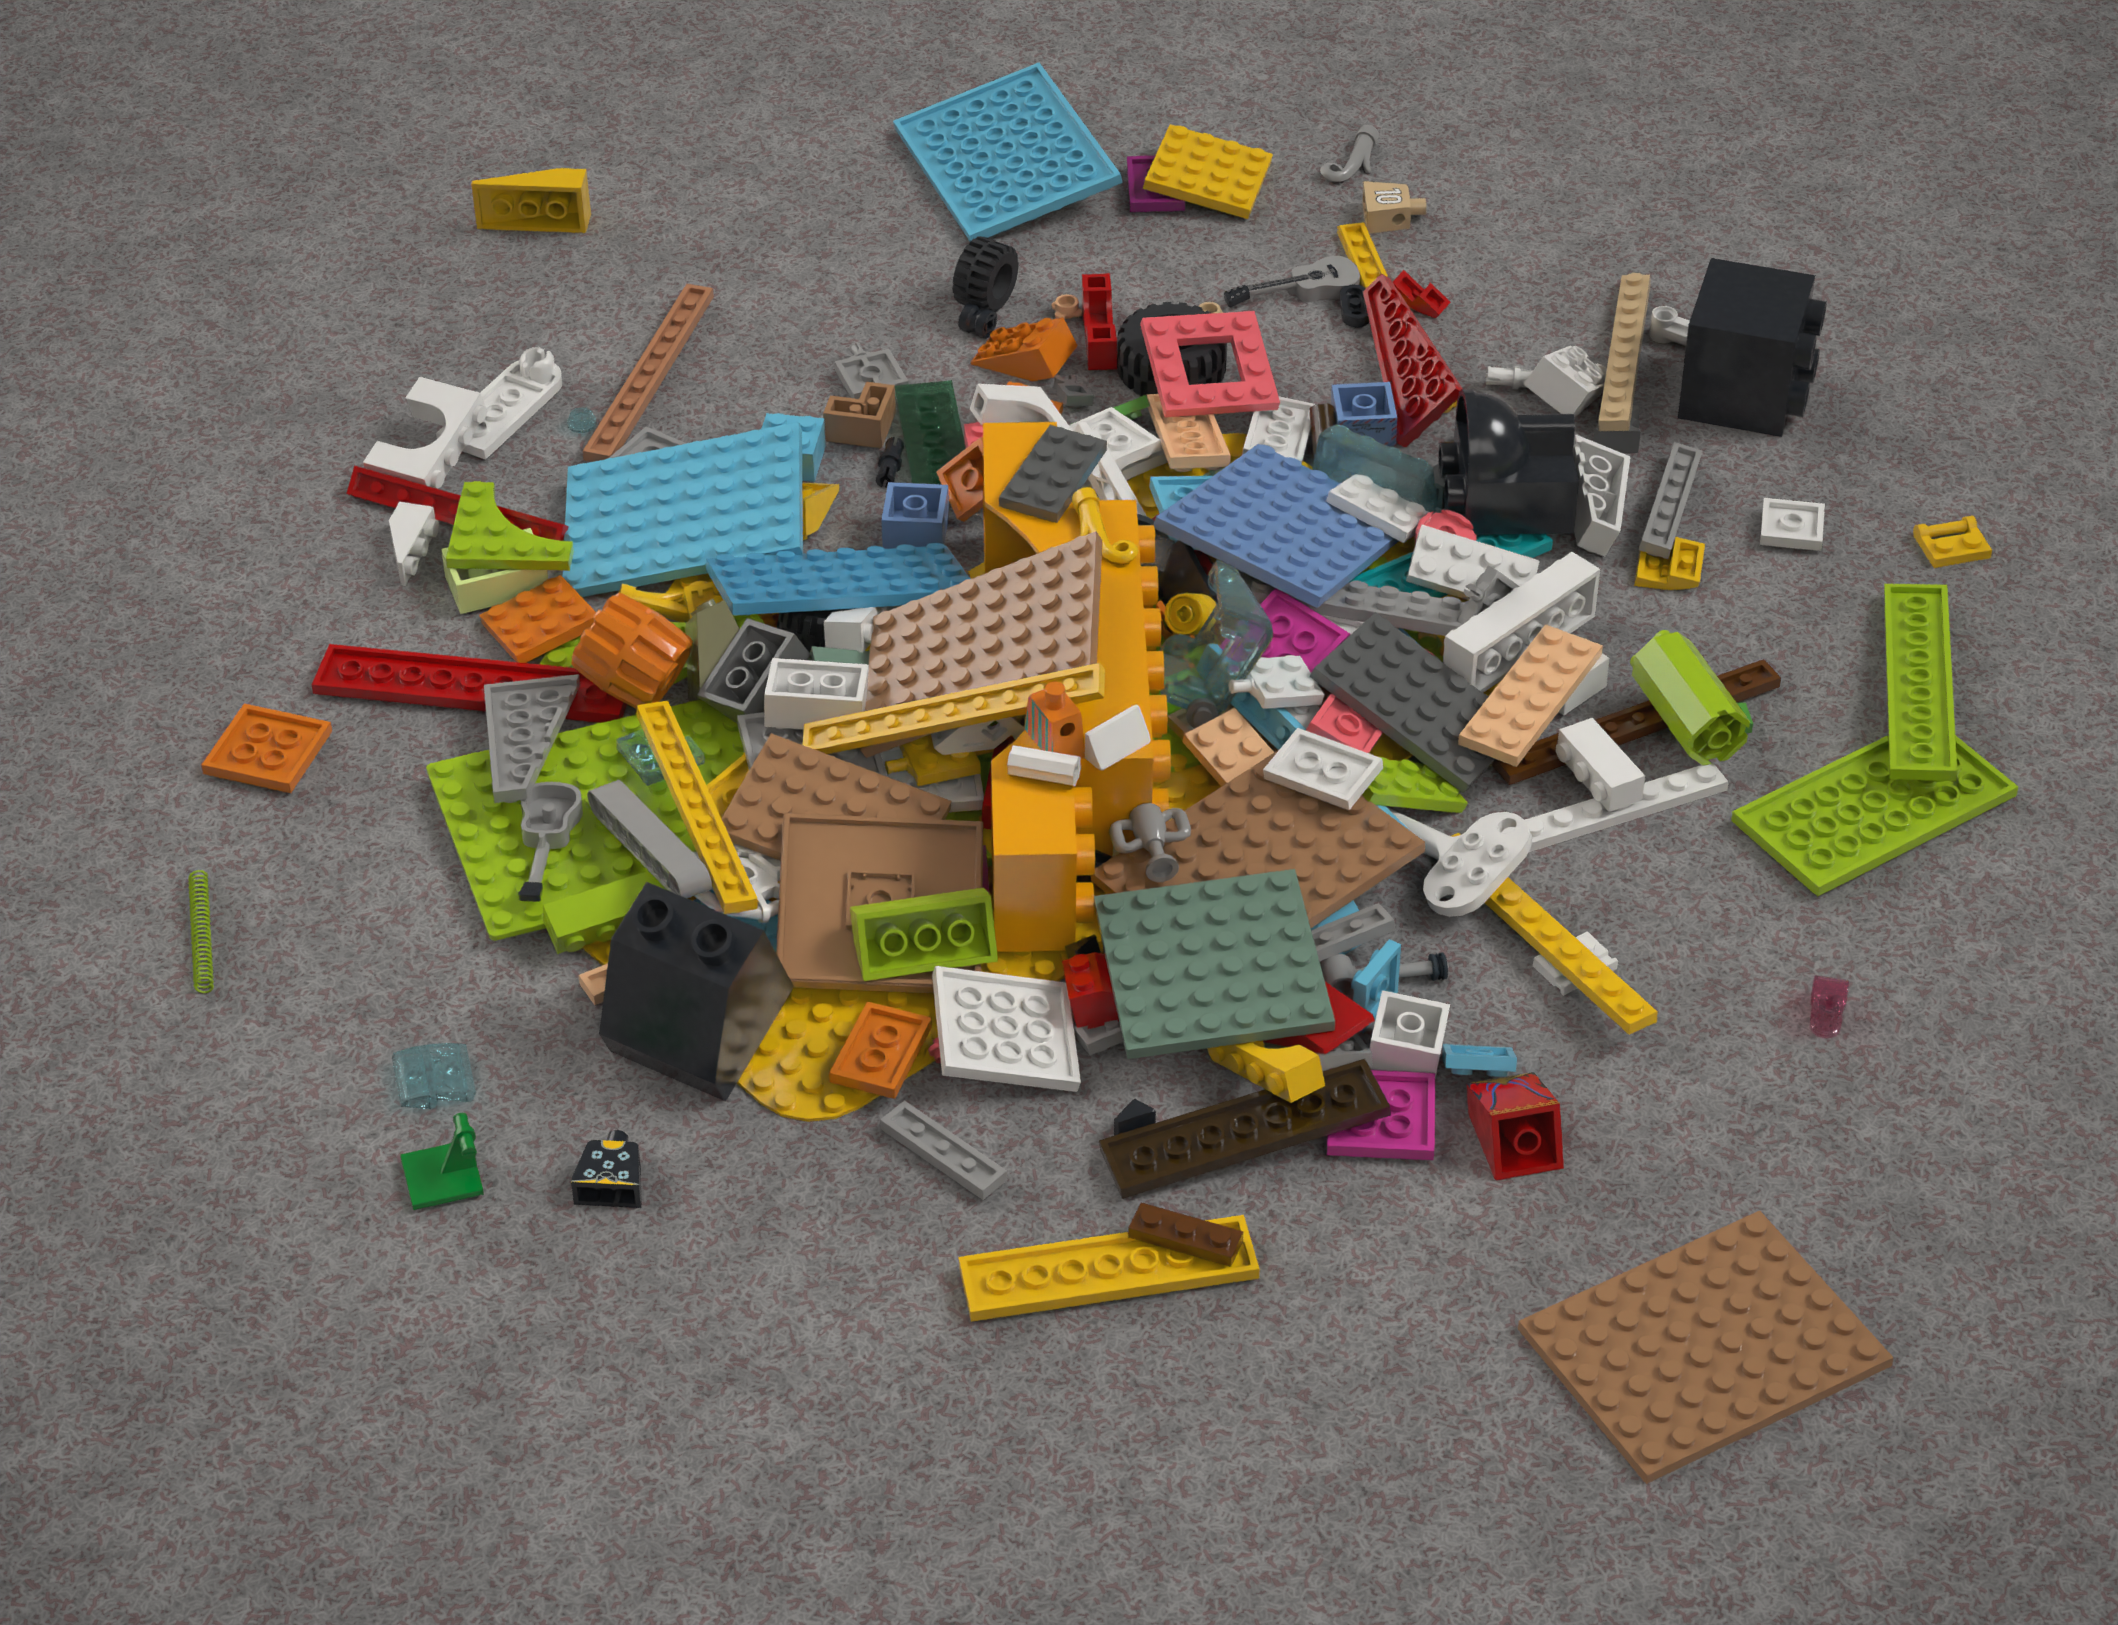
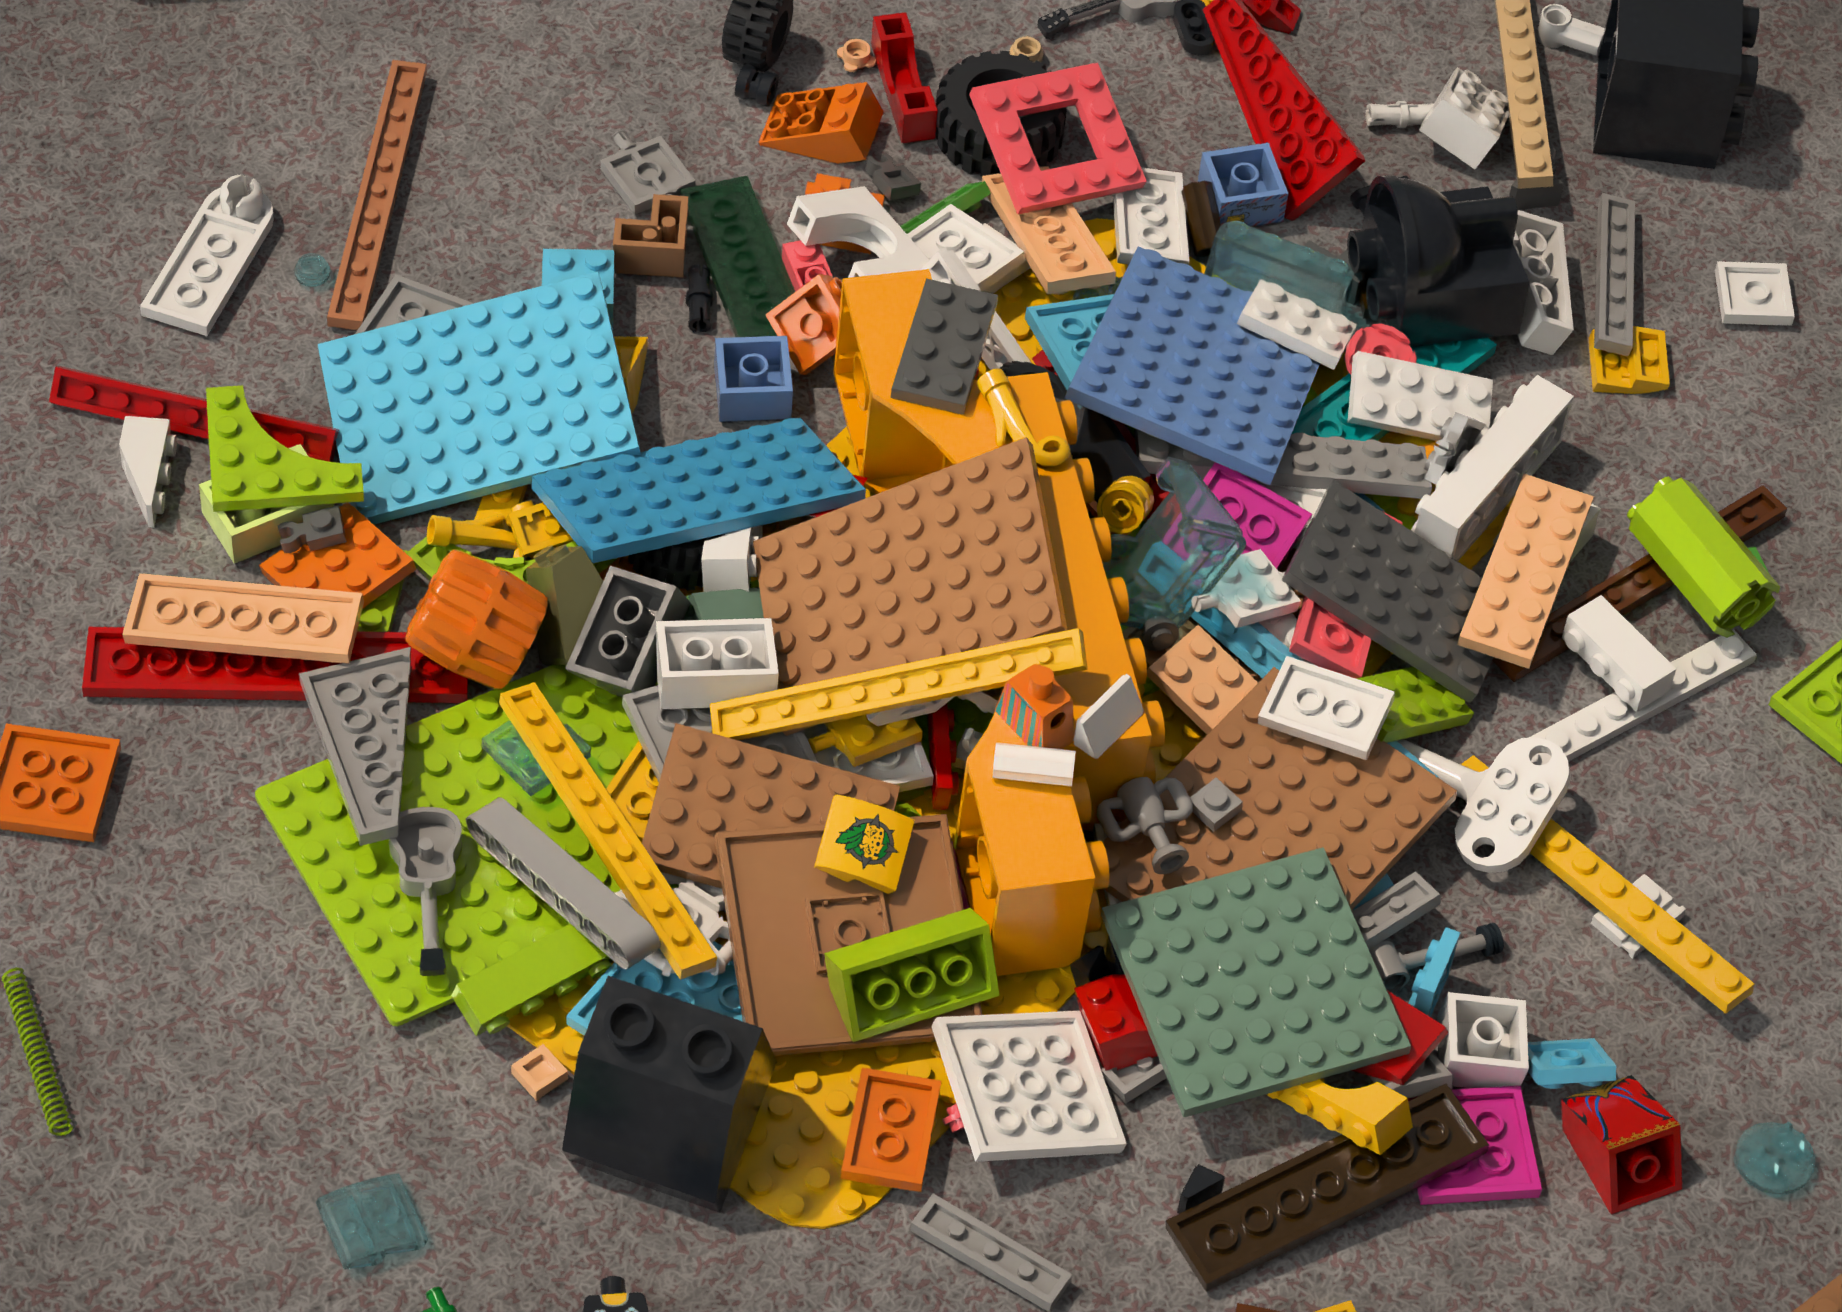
camera: 15 degrees left, 10 degrees up
(441, 404) = (161, 276): white arch -> none
(450, 643) = (243, 618): none -> light nougat plate
(528, 590) = (318, 530): none -> dark grey plate
(905, 832) = (864, 843): none -> yellow slope
(1212, 833) = (1215, 804): none -> light grey plate
(1651, 1151) = (1763, 1169): none -> clear light blue plate

